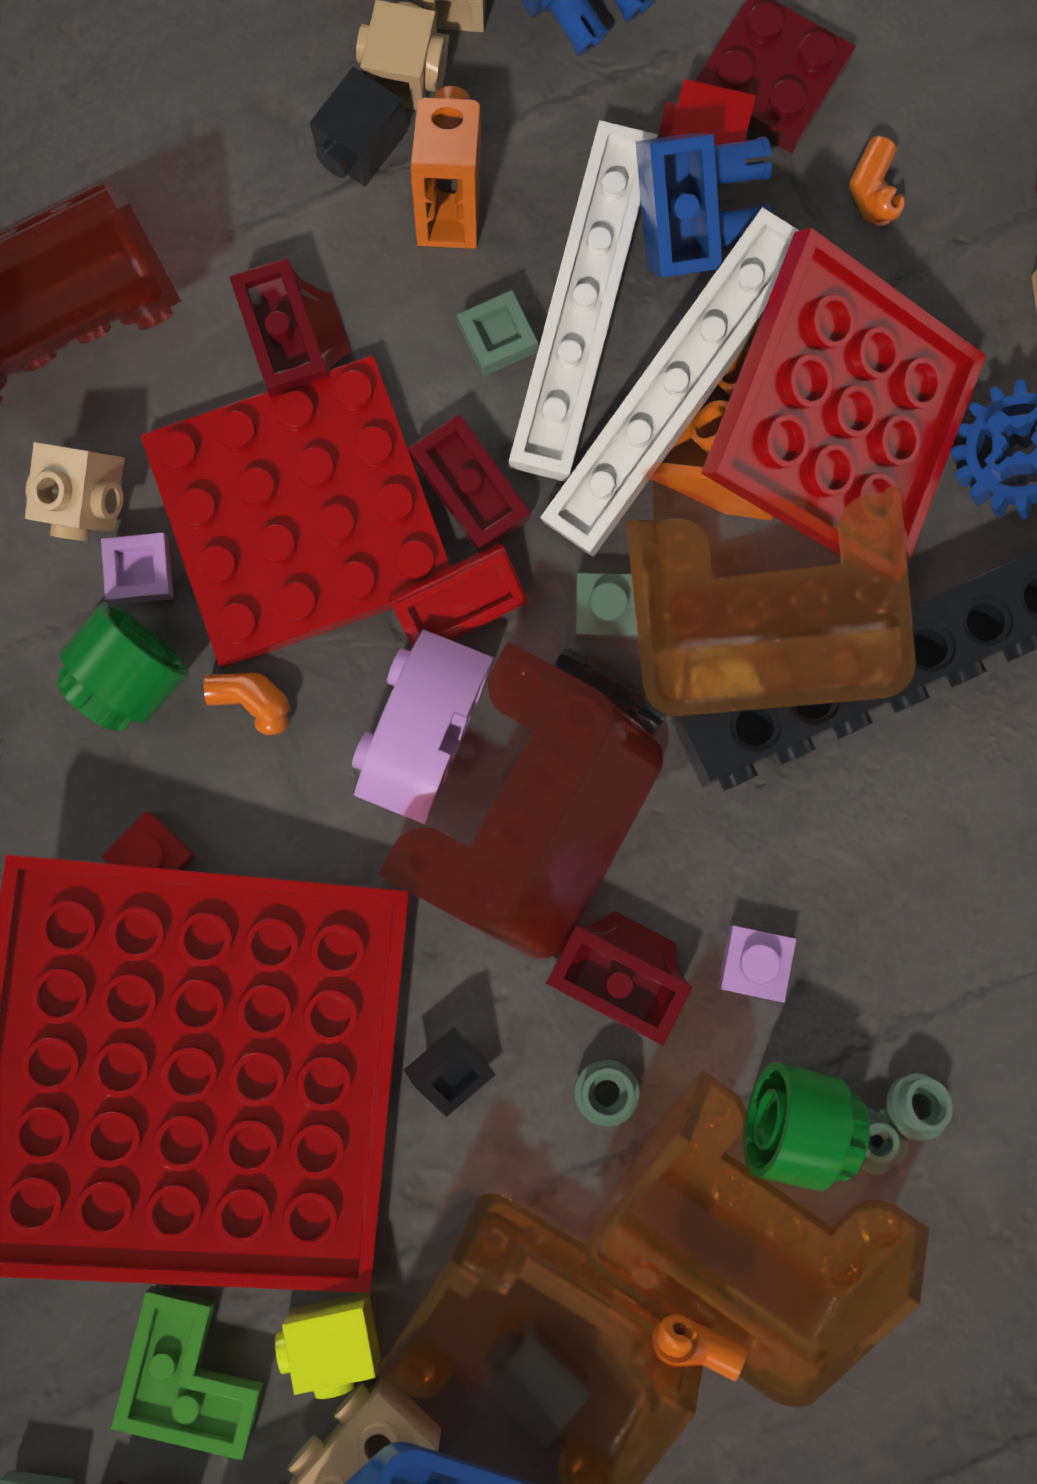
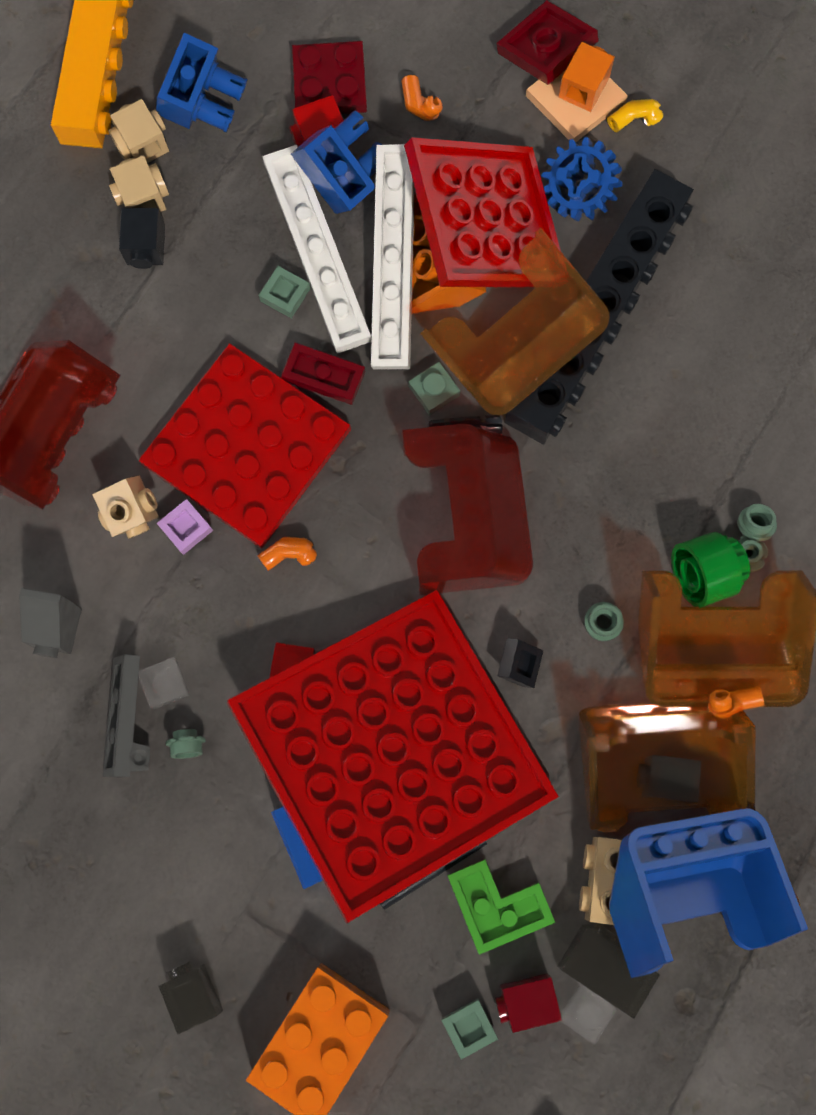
camera: 30 degrees left, 5 degrees down
(118, 669) = (212, 581): green piece -> none
(289, 326) = (175, 358): dark red slope -> none
(329, 1345) = (557, 837): neon yellow brick -> none
(421, 725) = (386, 503): lavender brick -> none
(447, 148) = (199, 215): orange torso -> none
(460, 596) = (358, 433): red tile -> none
(623, 974) = (571, 560): dark red slope -> none
(757, 963) = (631, 510): lavender plate -> none

